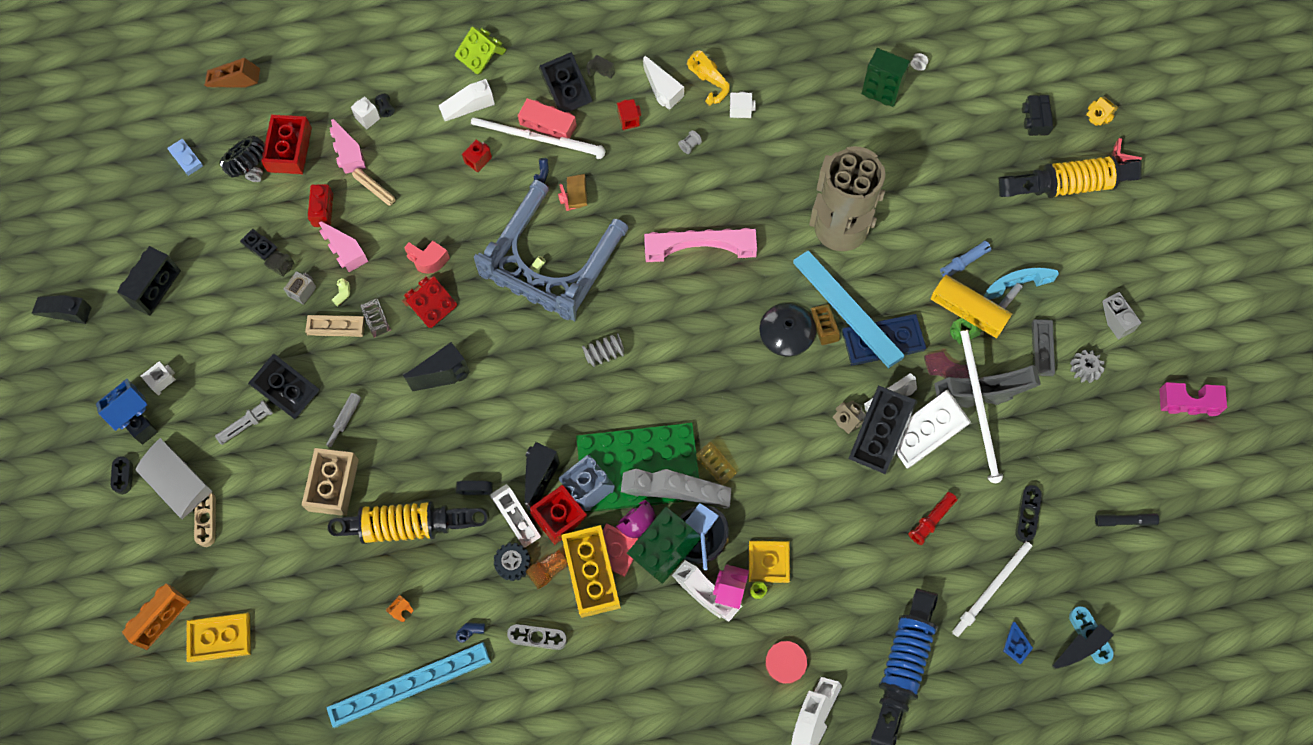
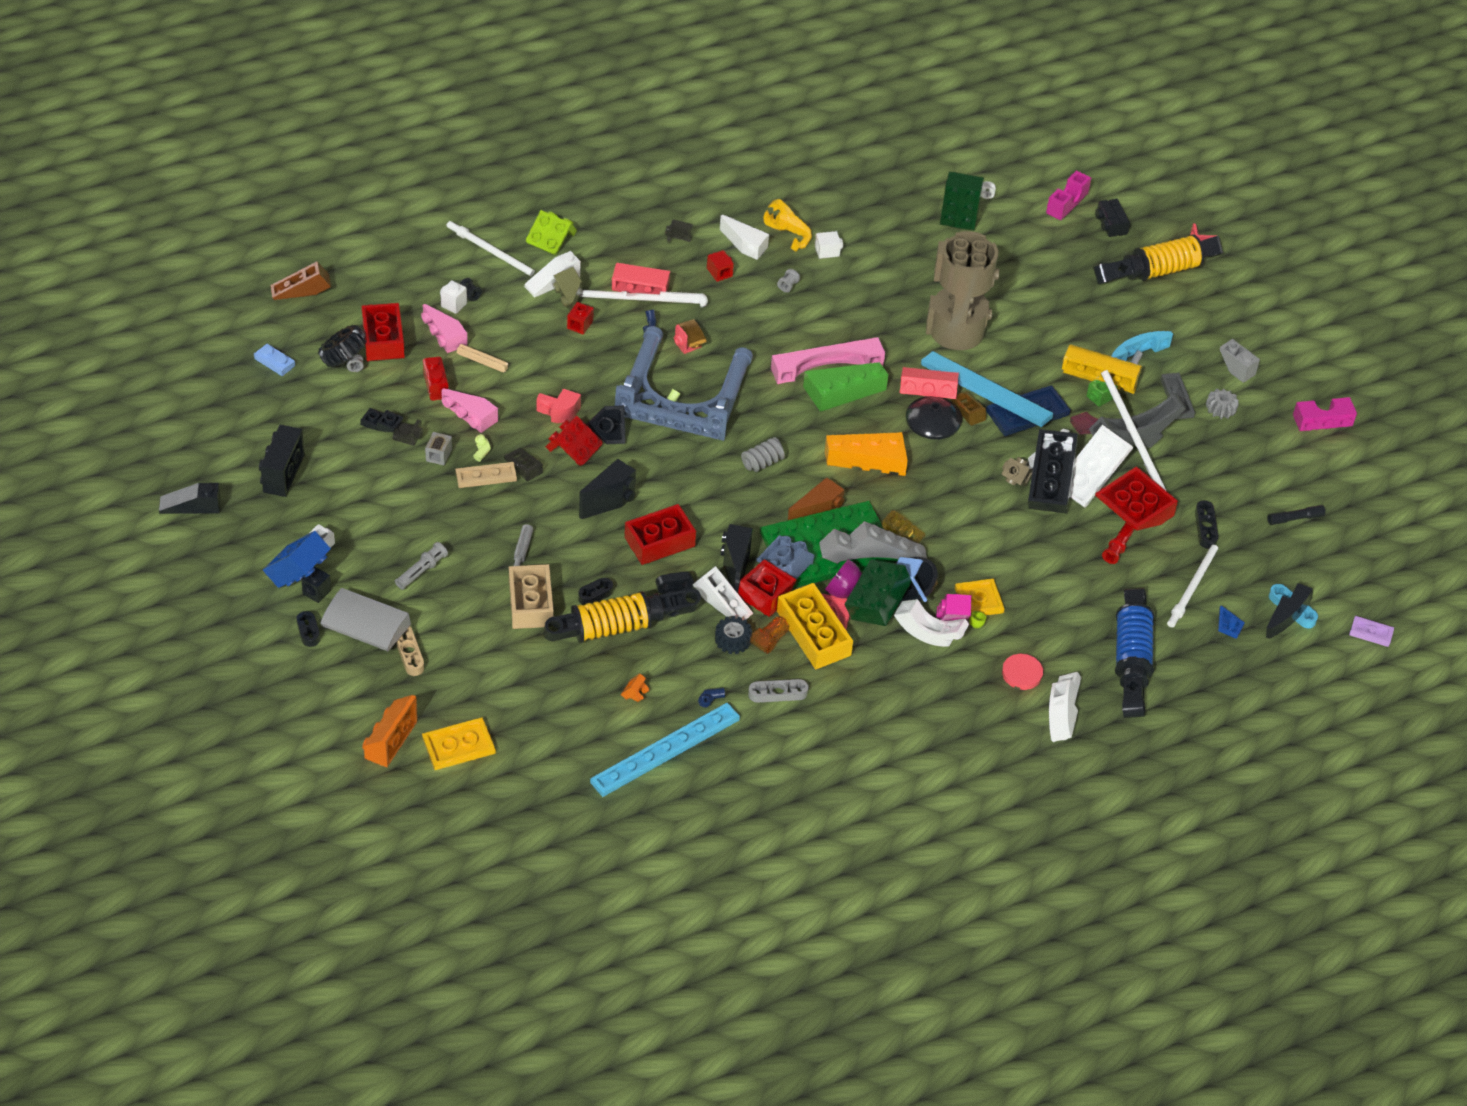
camera: 20 degrees left, 20 degrees down
(283, 386) = (451, 528): black slope -> none
(399, 37) = (463, 232): none -> white bar
(399, 486) = (595, 591): none -> black beam
(468, 289) = (609, 424): none -> black slope
(474, 119) = (569, 287): none -> olive slope
(474, 430) = (660, 534): none -> red brick
(565, 83) = (647, 246): black slope -> none
(642, 415) = (821, 498): none -> dark orange slope
(707, 364) = (867, 451): none -> light orange wedge
(708, 278) = (844, 384): none -> bright green wedge
(791, 291) = (929, 383): none -> coral brick
(961, 262) = (1085, 336): medium blue pin -> none
(961, 478) = (1138, 500): none -> red slope
(992, 89) = (1062, 202): none -> dark pink arch
(1107, 108) = (1170, 200): yellow brick -> none
(1166, 686) = (1371, 631): none -> lavender plate

